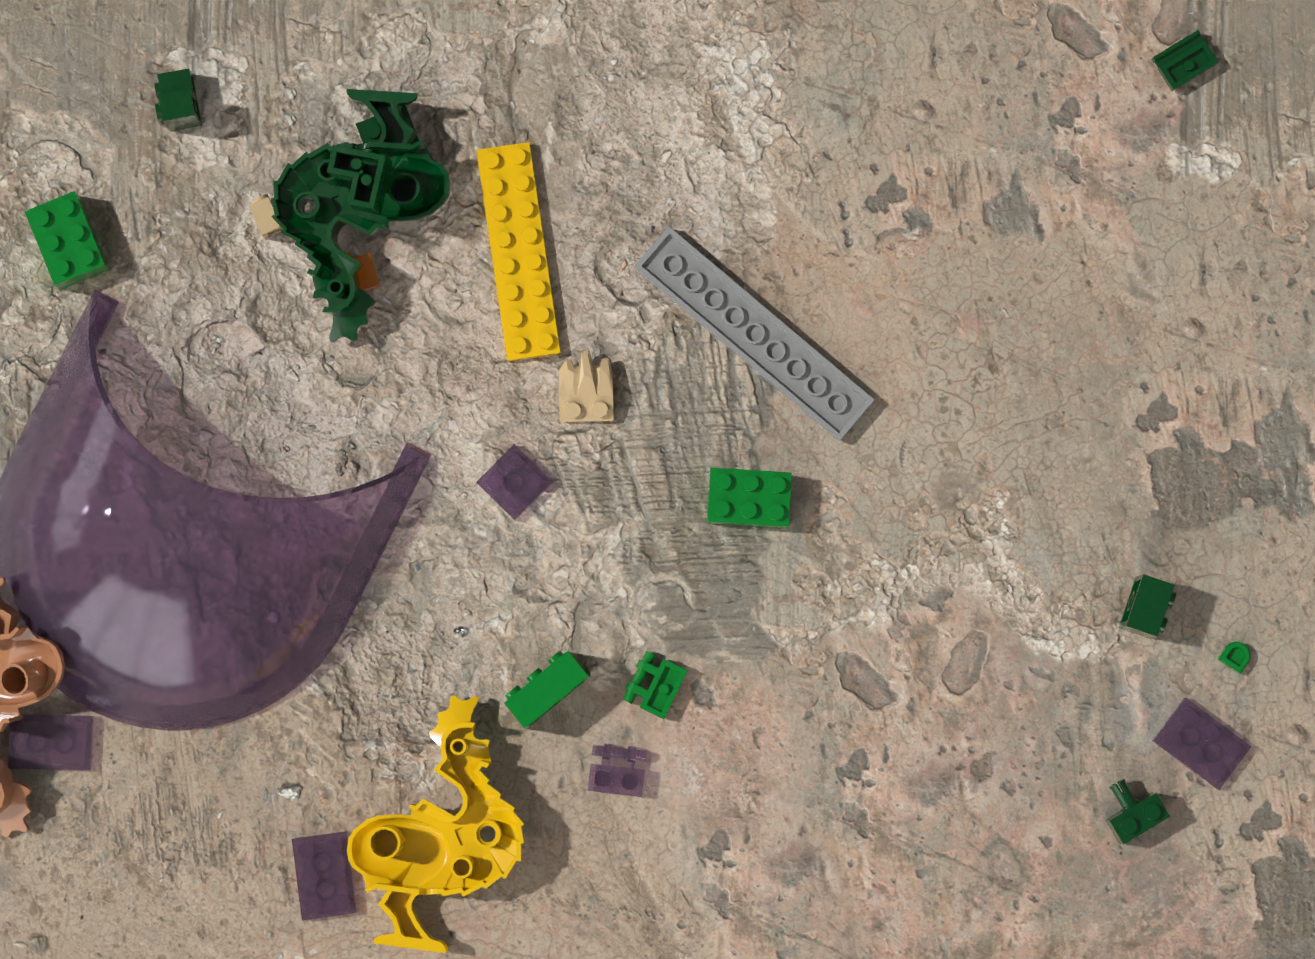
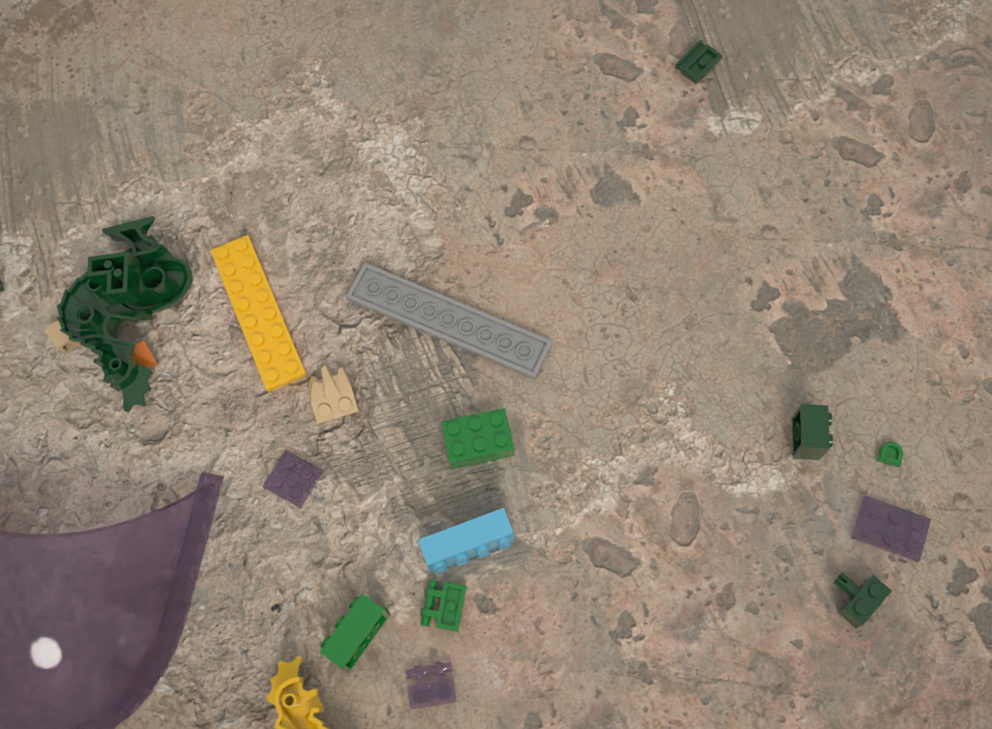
camera: 10 degrees left, 15 degrees down
(703, 620) = (466, 541): none -> medium azure brick

